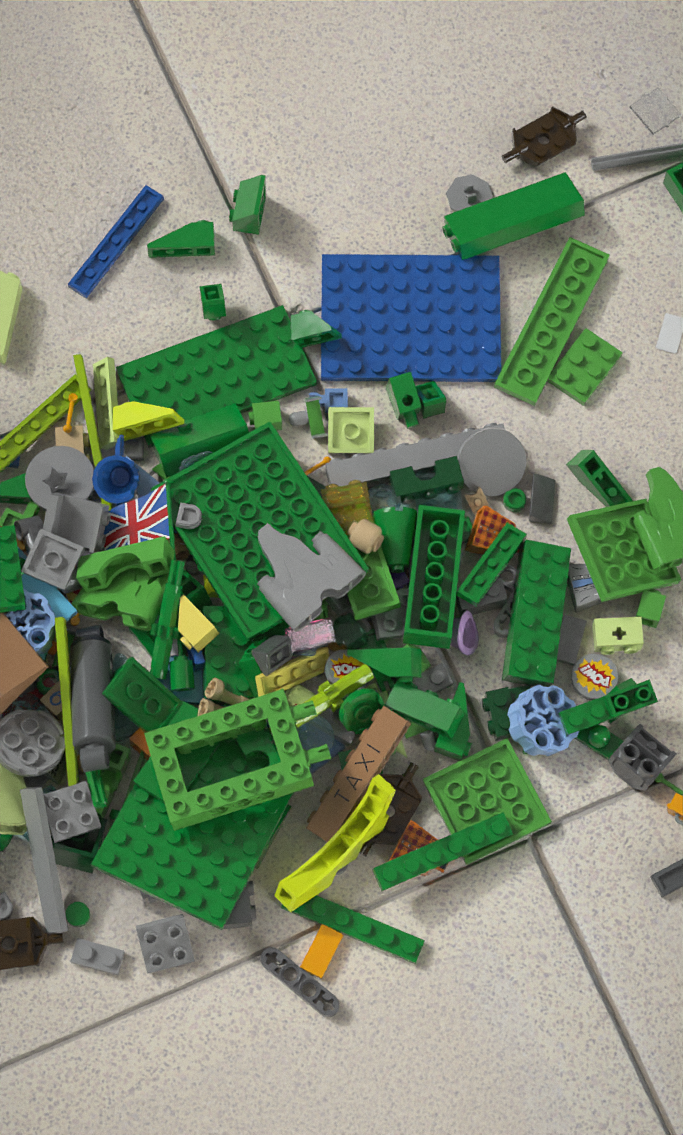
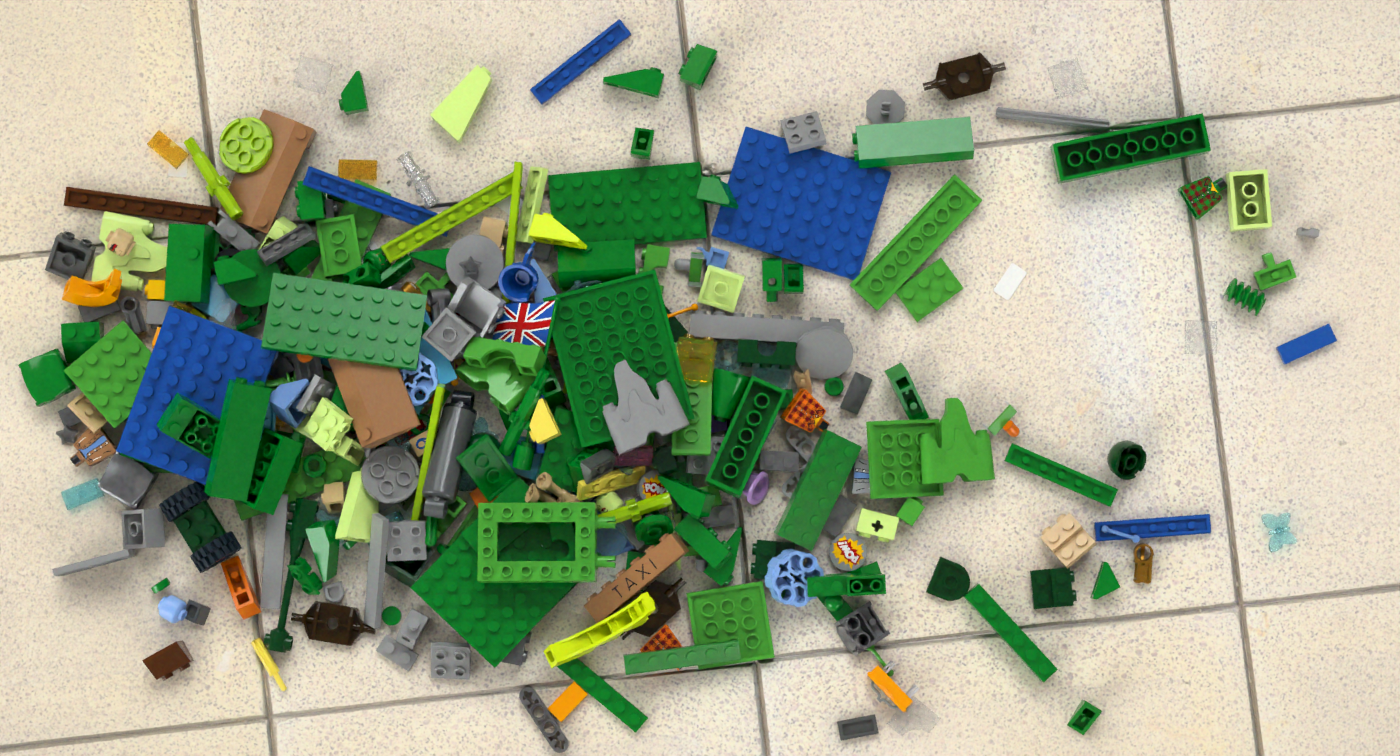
camera: 20 degrees right, 15 degrees up
(72, 399) = (505, 193): light orange hinge -> none
(107, 914) = (412, 628): none -> light grey torso
(188, 516) = (565, 333): light grey tile -> none
(365, 536) = (701, 389): tan head -> none
(388, 240) = (803, 132): none -> light grey plate
(491, 564) = (793, 441): green plate -> none

